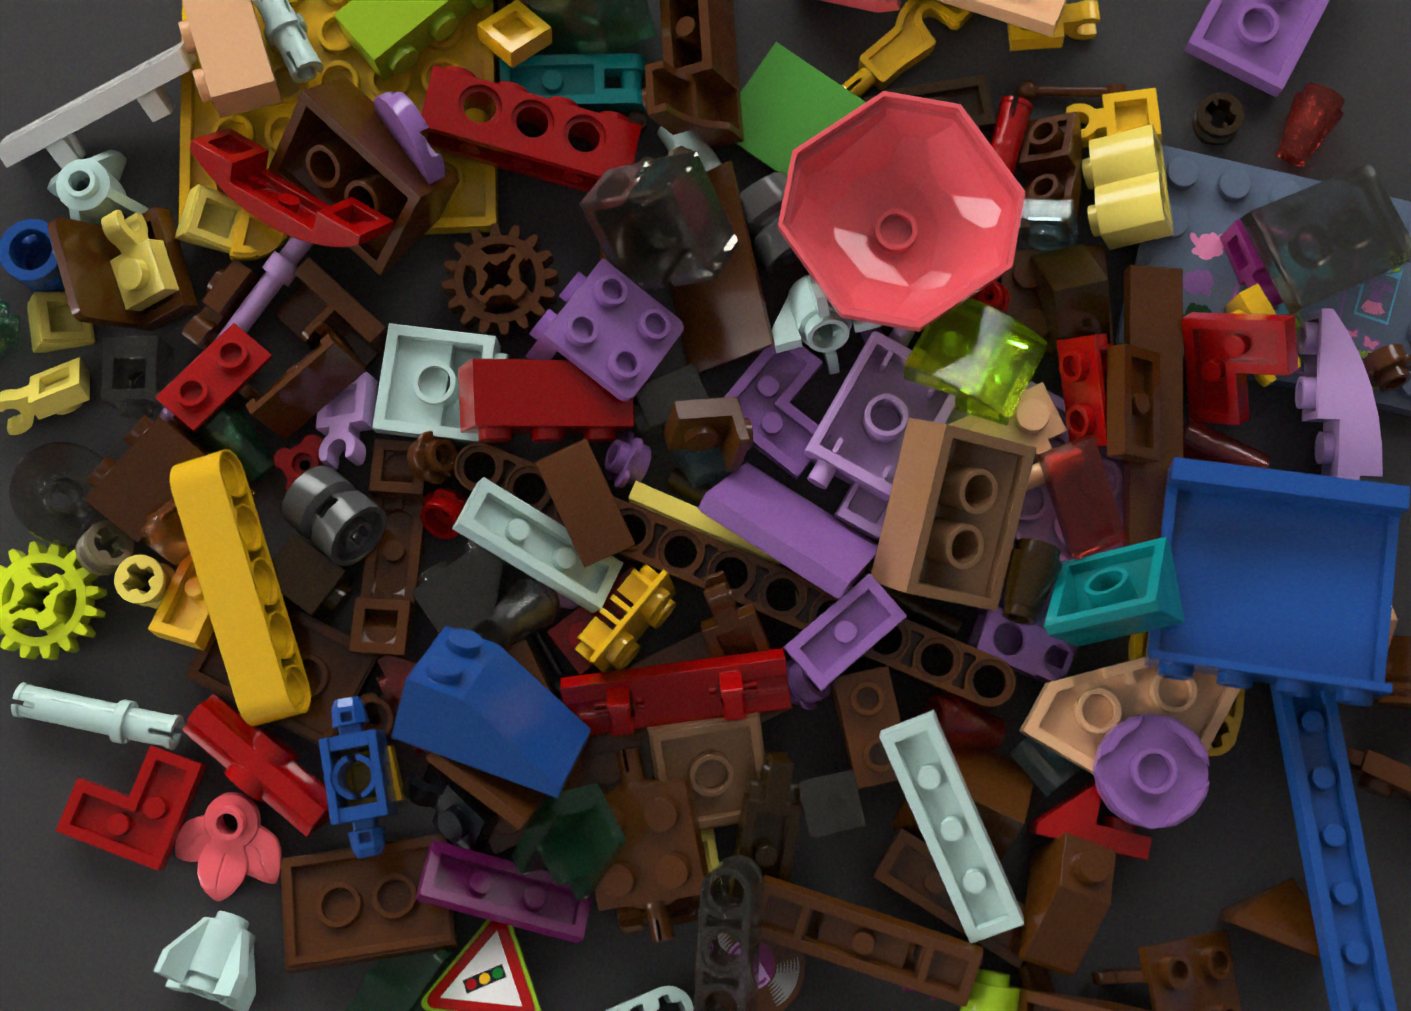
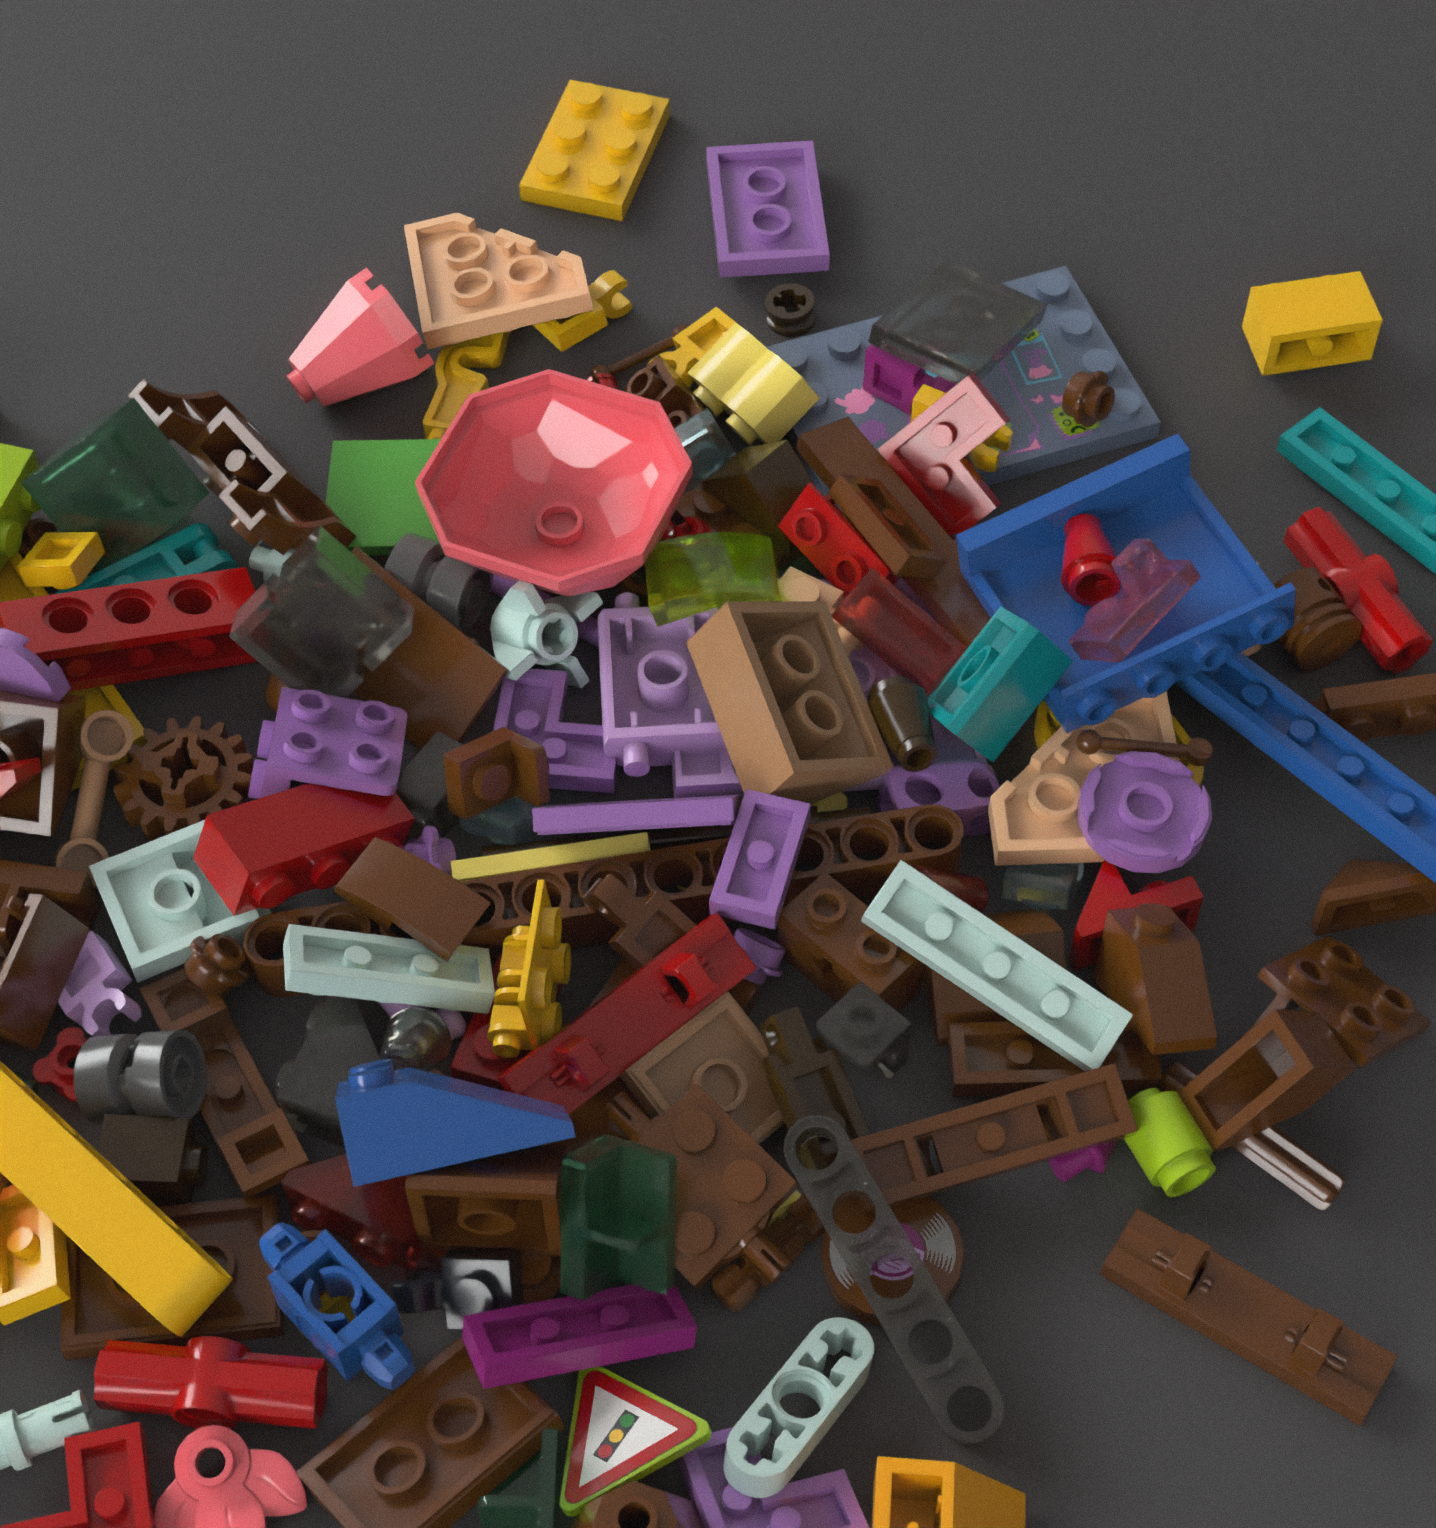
camera: 35 degrees left, 25 degrees down
(397, 297) = (100, 740): none -> medium nougat bar
(441, 512) = (264, 1034): red plate -> none
(1228, 743) = (1195, 752): none -> reddish brown hinge
(1262, 543) = (1087, 561): none -> red cone
(1262, 616) = (1148, 593): none -> clear pink hinge
(1309, 122) = (872, 268): clear red cone -> none
(1340, 396) = (1053, 430): lavender slope -> none

